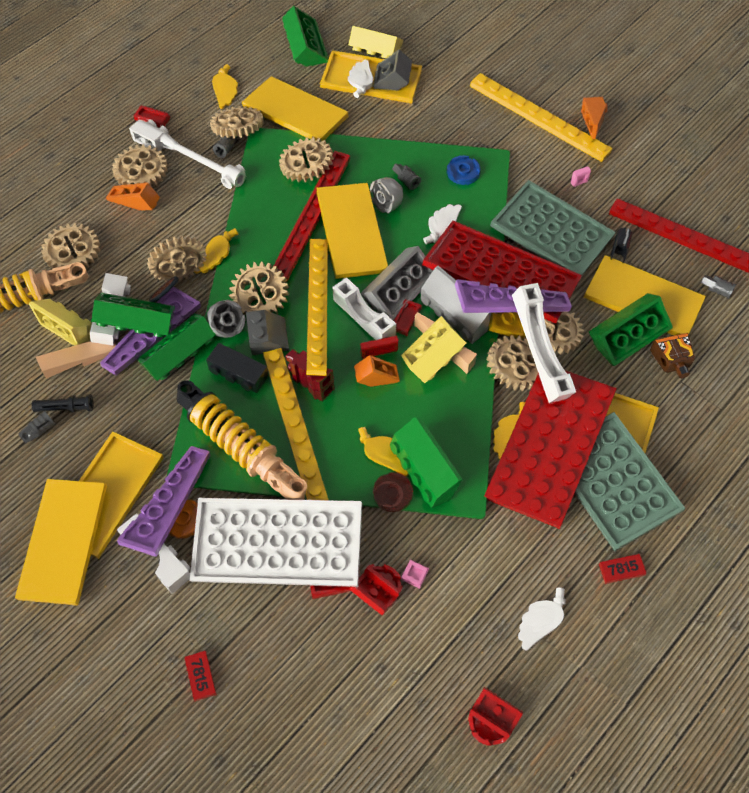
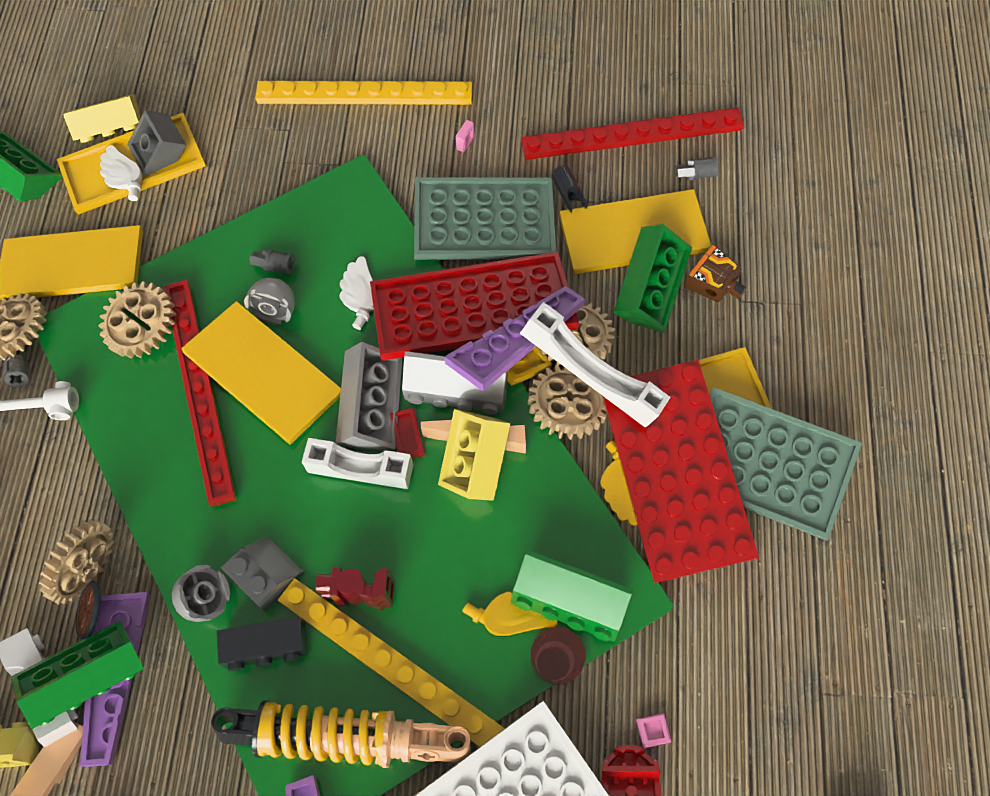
camera: 35 degrees left, 5 degrees up
(176, 347) = (164, 682): green slope -> none
(217, 250) = (115, 509): yellow animal -> none
(274, 283) = (224, 505): tan gear -> none
(317, 308) = (304, 501): yellow plate -> none
(376, 372) = (428, 527): orange slope -> none
(379, 347) = (408, 493): red tile -> none
(463, 170) = (332, 211): blue tile -> none
(541, 619) = (817, 676): white animal -> none
(593, 113) = (421, 52): orange slope -> none
(622, 568) = (848, 554): red tile -> none

